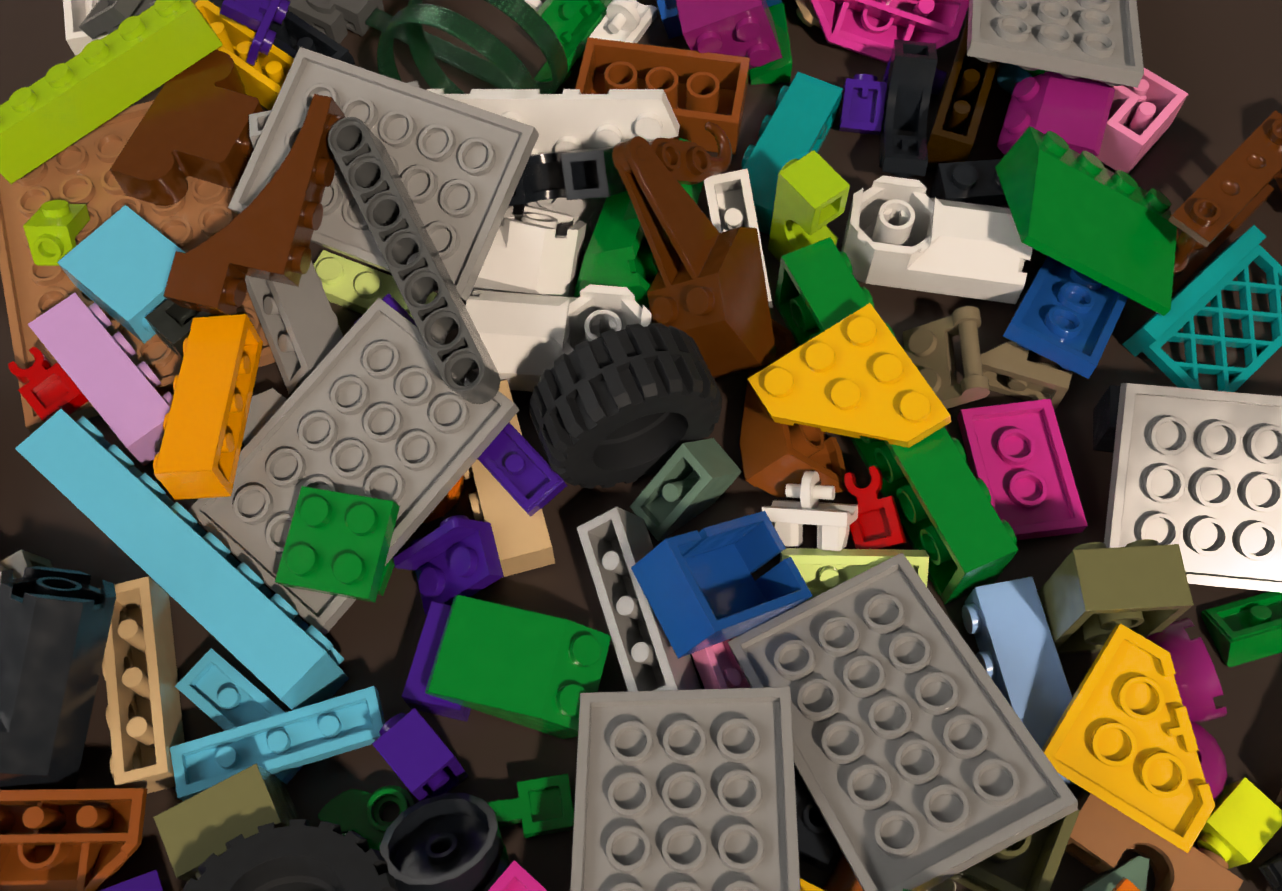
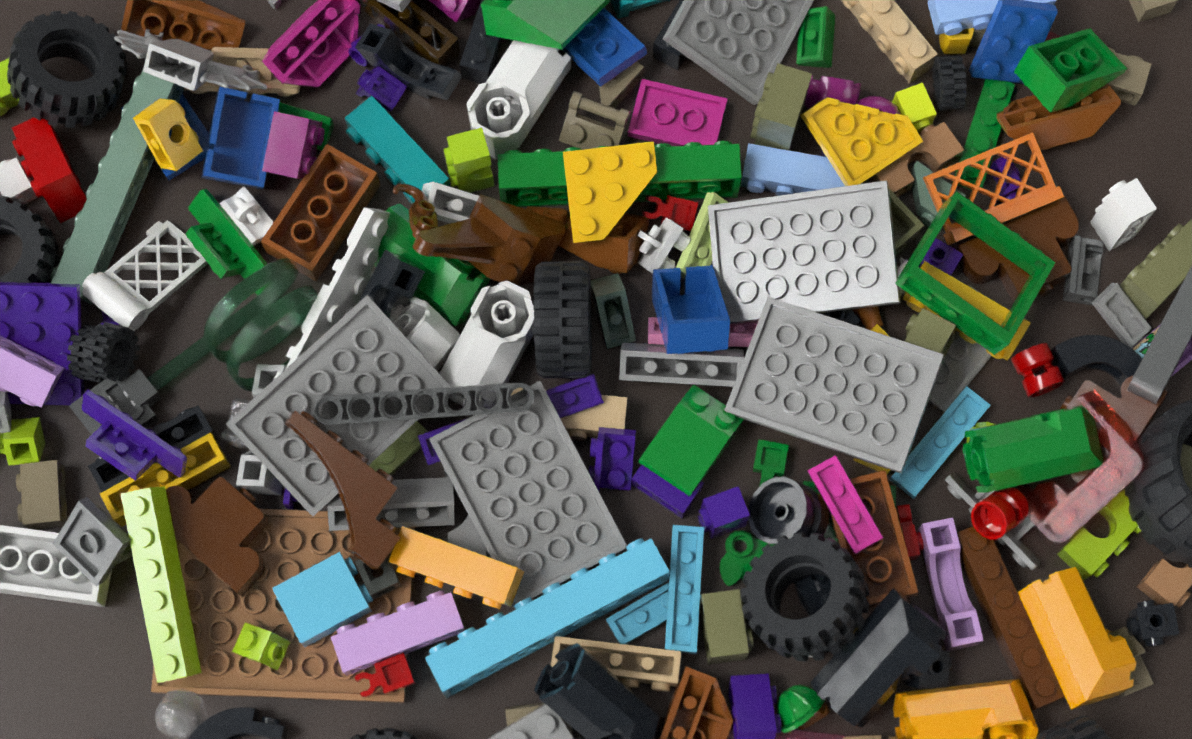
camera: 70 degrees left, 10 degrees up
(337, 544) = (582, 516): green plate -> none

